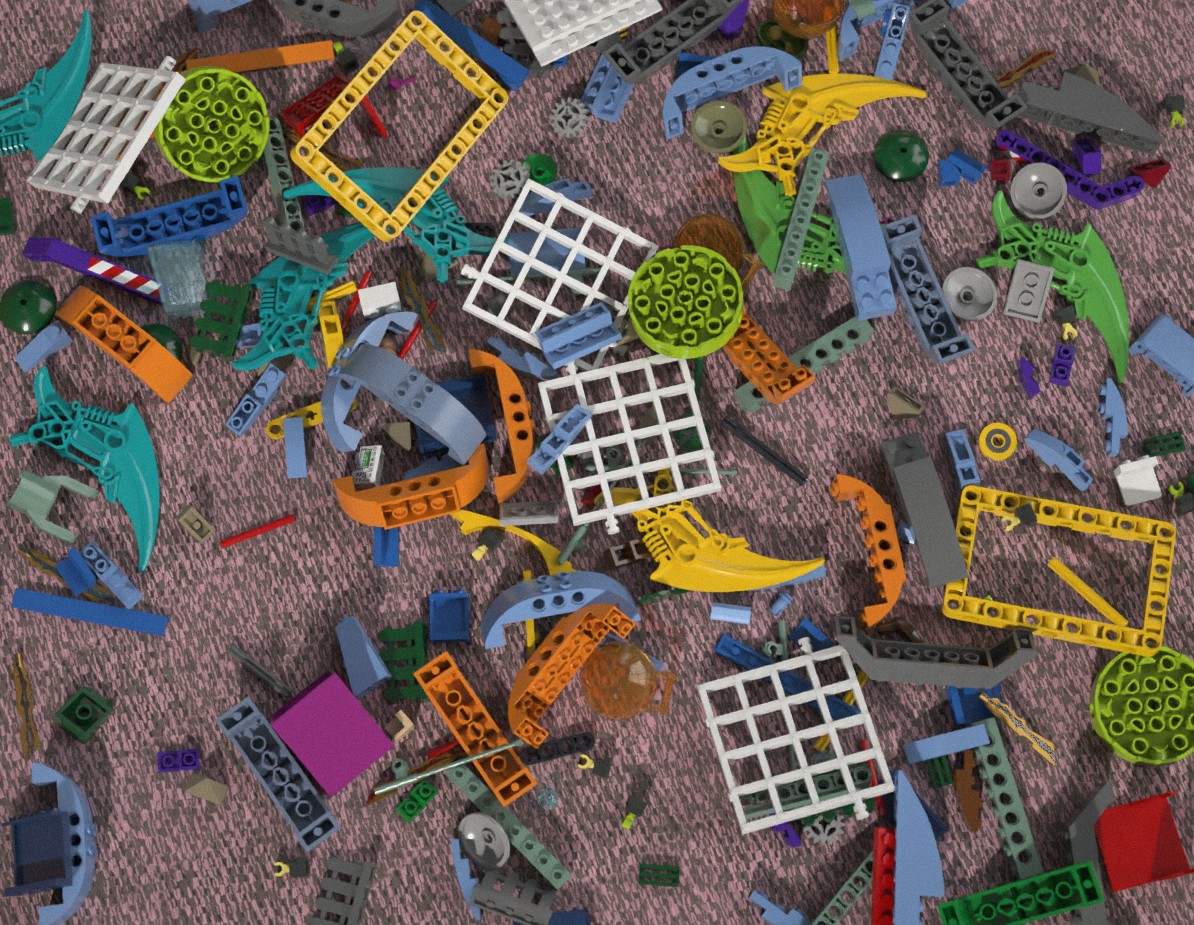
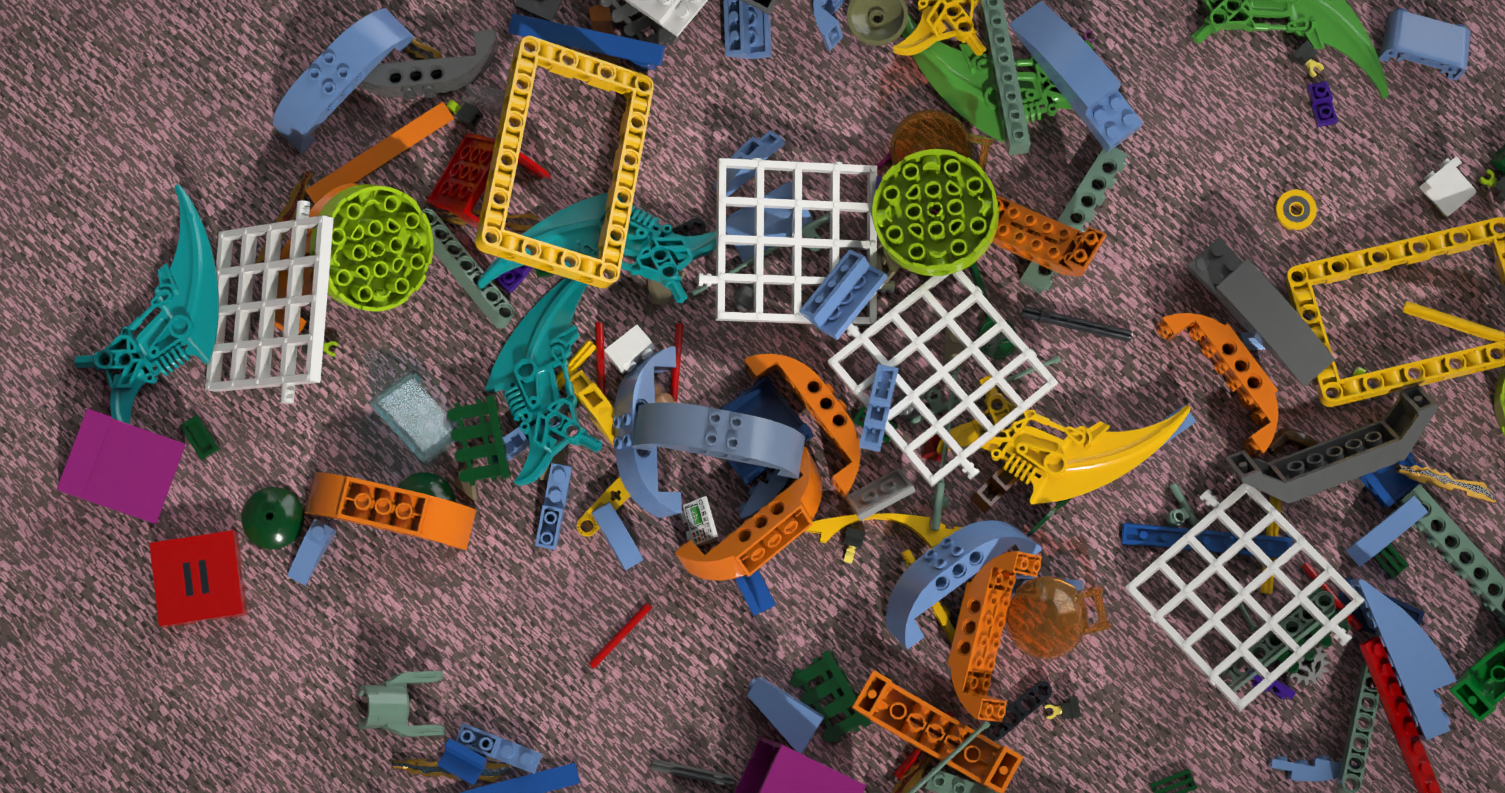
camera: 25 degrees left, 5 degrees up
(56, 251) = (321, 447): dark purple beam -> none
(125, 454) = (447, 618): teal piece -> none
(179, 221) = (380, 364): blue slope -> none
(195, 524) = (557, 658): dark tan slope -> none
(300, 250) = (520, 332): dark grey fence -> none
(395, 84) = (531, 116): magenta hand -> none
(399, 726) = (855, 761): tan panel -> none
(400, 434) = (714, 474): dark tan slope -> none
(431, 334) = (693, 357): pearl gold sword -> none
(449, 617) = (851, 632): blue panel -> none
(511, 171) = (694, 172): light grey gear -> none
(528, 365) = (805, 346): medium blue slope -> none
(541, 163) = (718, 132): green dish -> none
(548, 799) = (1033, 763): clear light blue tile -> none
(573, 125) = (727, 80): light grey gear -> none
(635, 808) = (1120, 732): pearl dark grey piece -> none
(730, 613) = (1120, 500): light blue axle -> none
(780, 604) = (1164, 468): medium blue pin -> none
(817, 638) = (1201, 482): blue panel -> none
(824, 756) = (1277, 599): clear light blue tile -> none
(903, 405) = (1189, 215): dark tan slope -> none
(922, 294) = (1161, 100): sand blue slope -> none
(962, 459) = (1271, 244): medium blue slope -> none
(967, 800) = (1430, 576): reddish brown slope -> none
(976, 287) = (1207, 65): light grey dish -> none
(1023, 516) = (1358, 276): pearl dark grey piece -> none
(1025, 372) = (1290, 127): dark purple slope -> none
(1028, 290) = (1257, 44): light grey tile -> none
(1056, 452) = (1360, 195): medium blue slope -> none
(1114, 411) = (1393, 127): medium blue slope -> none
(1179, 441) = (1468, 129): dark green tile -> none

